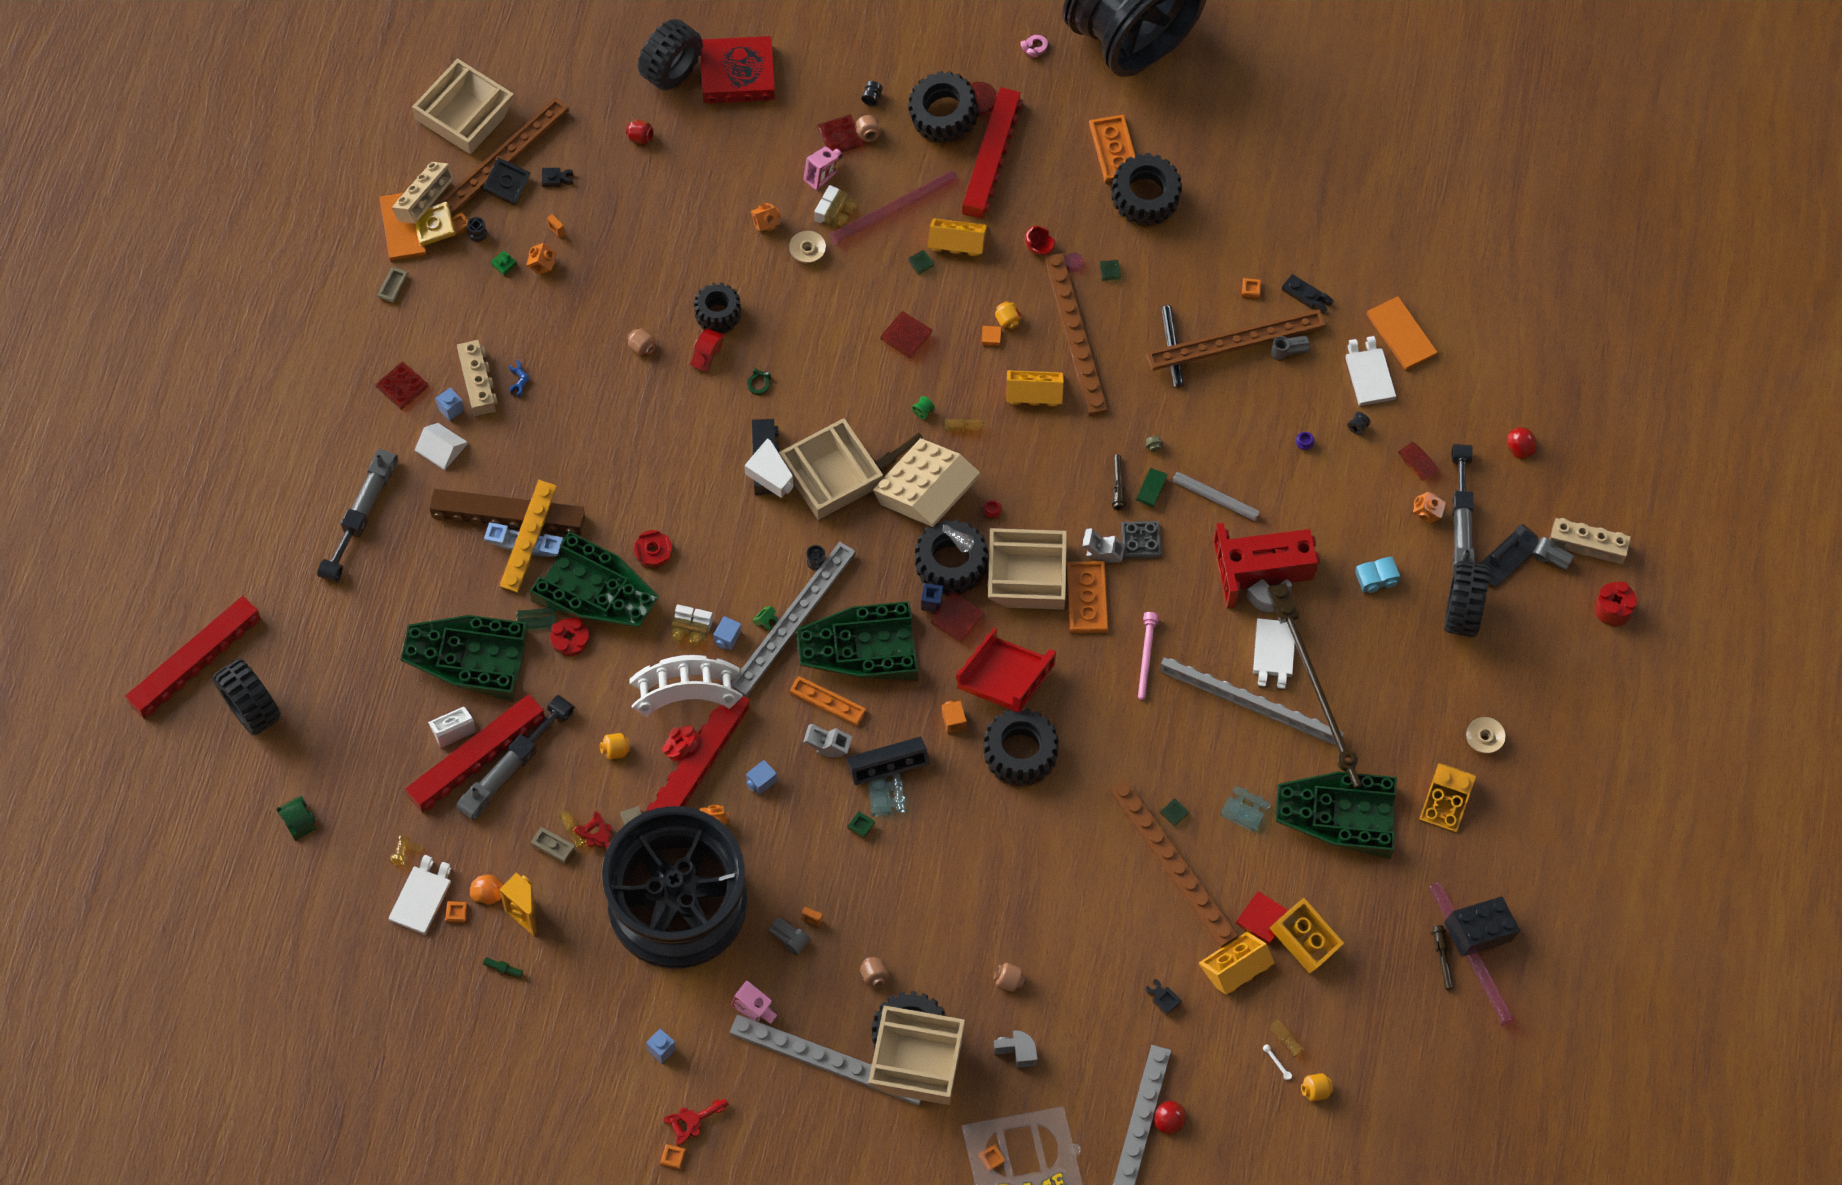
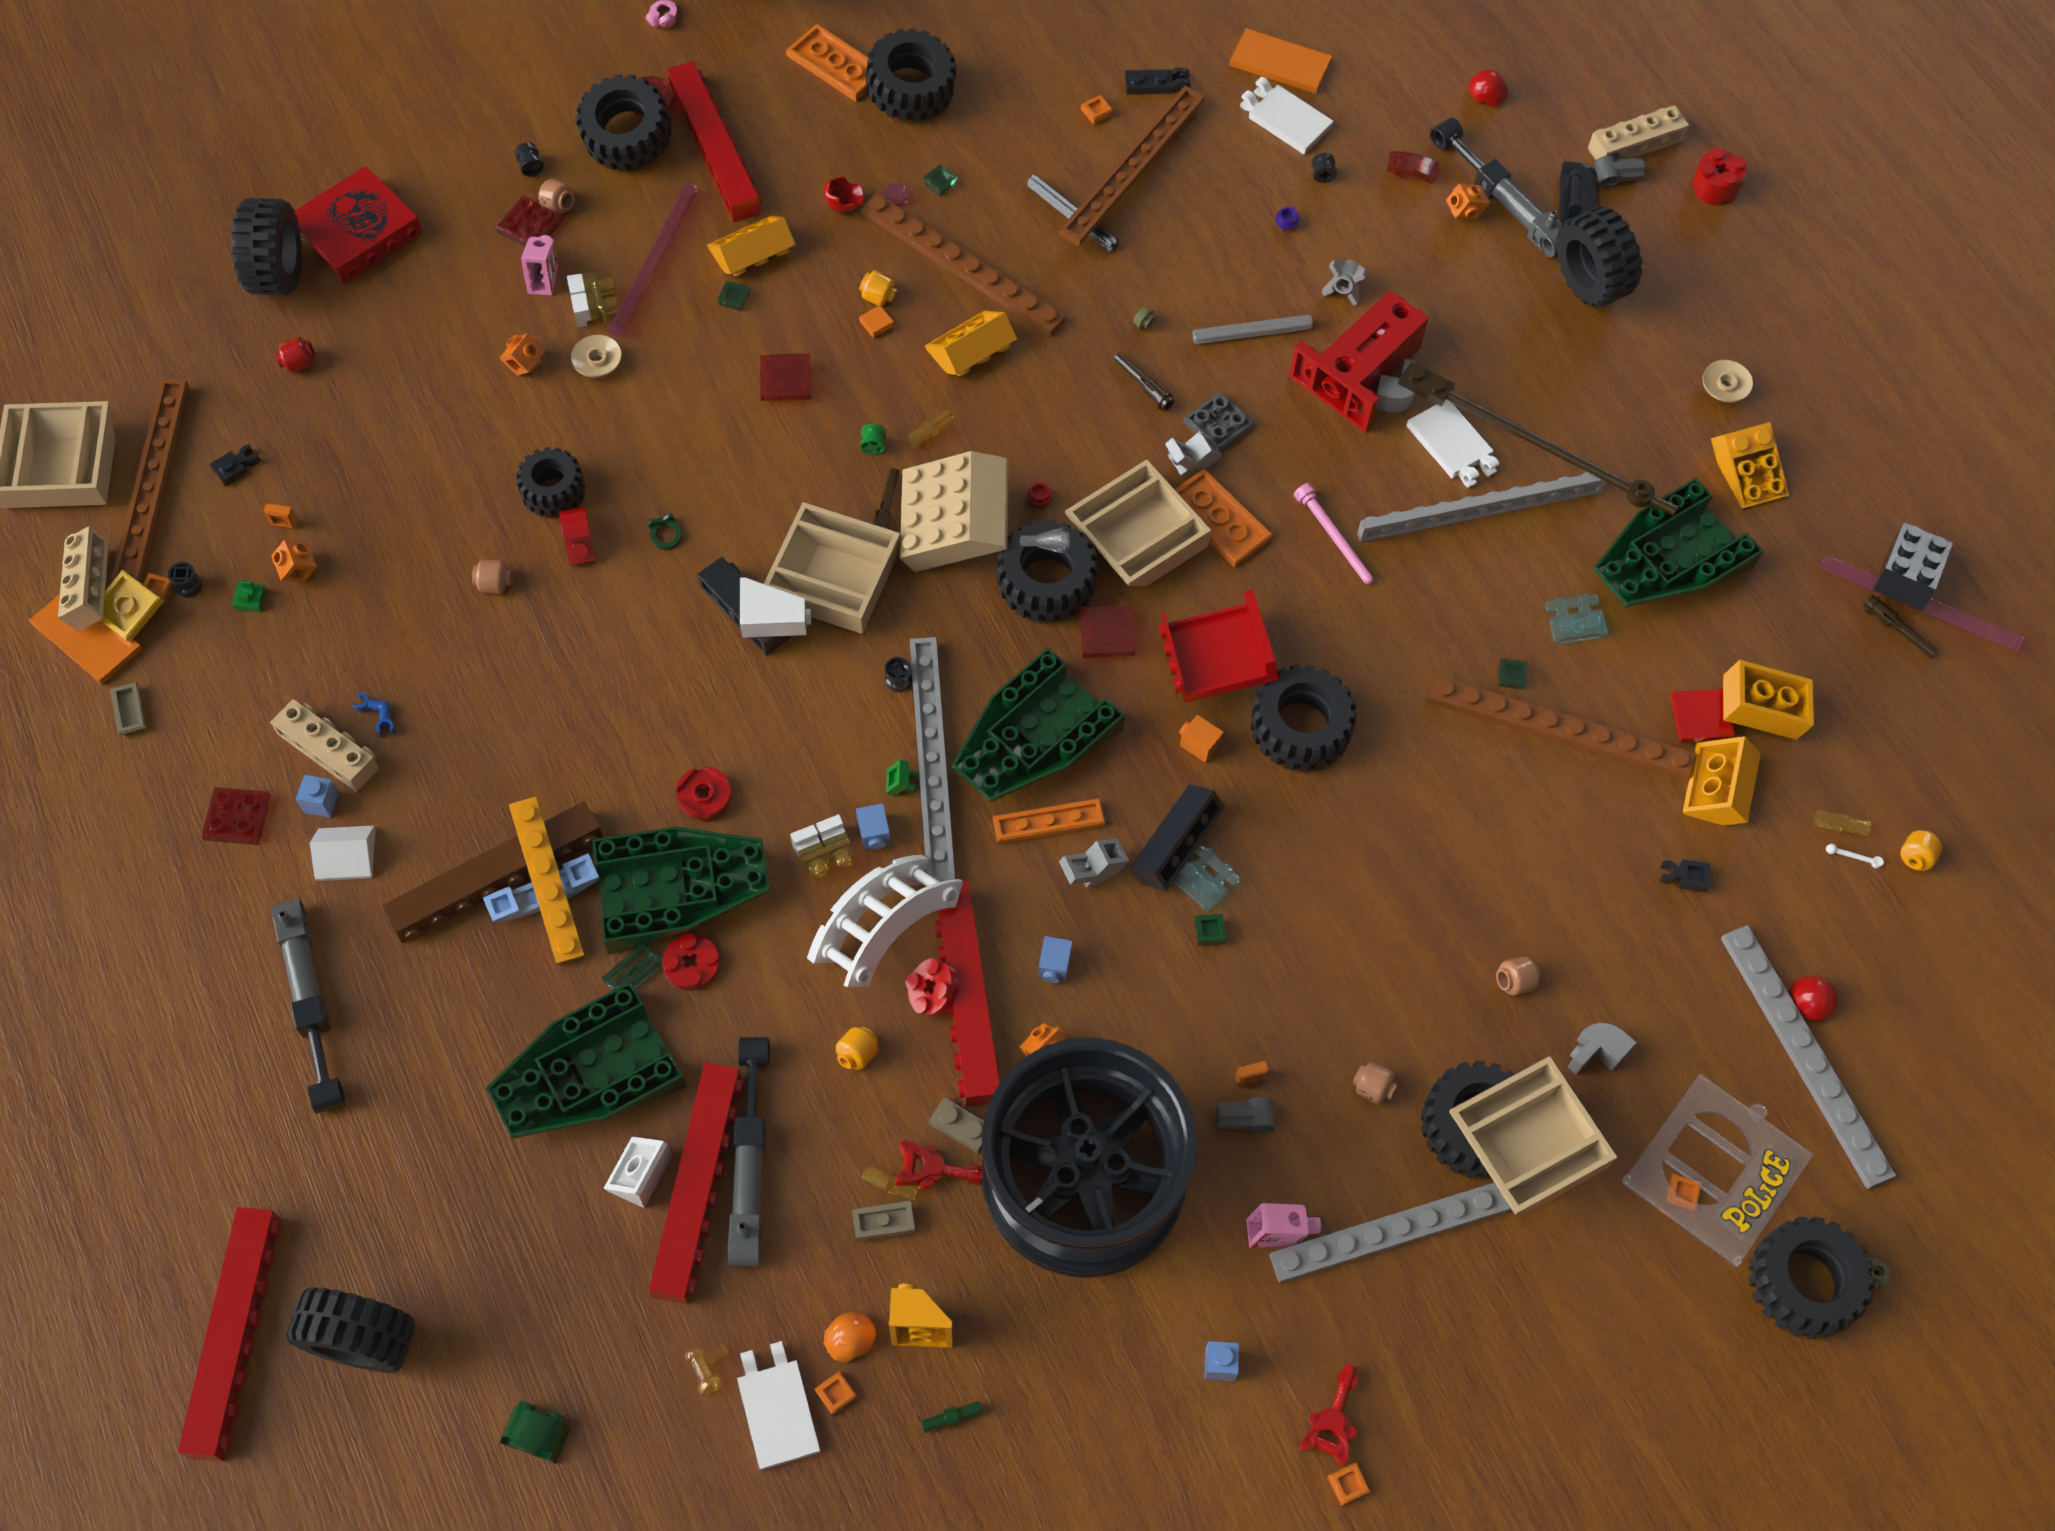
camera: 40 degrees left, 0 degrees up
(506, 181) = (177, 504): black tile -> none
(931, 597) = (1064, 628): dark blue brick -> none
(1151, 487) = (1183, 362): dark green slope -> none
(1289, 346) = (1188, 139): dark grey piece -> none
(1302, 504) = (1345, 279): none -> light grey brick
(1377, 574) = (1480, 298): medium azure brick -> none

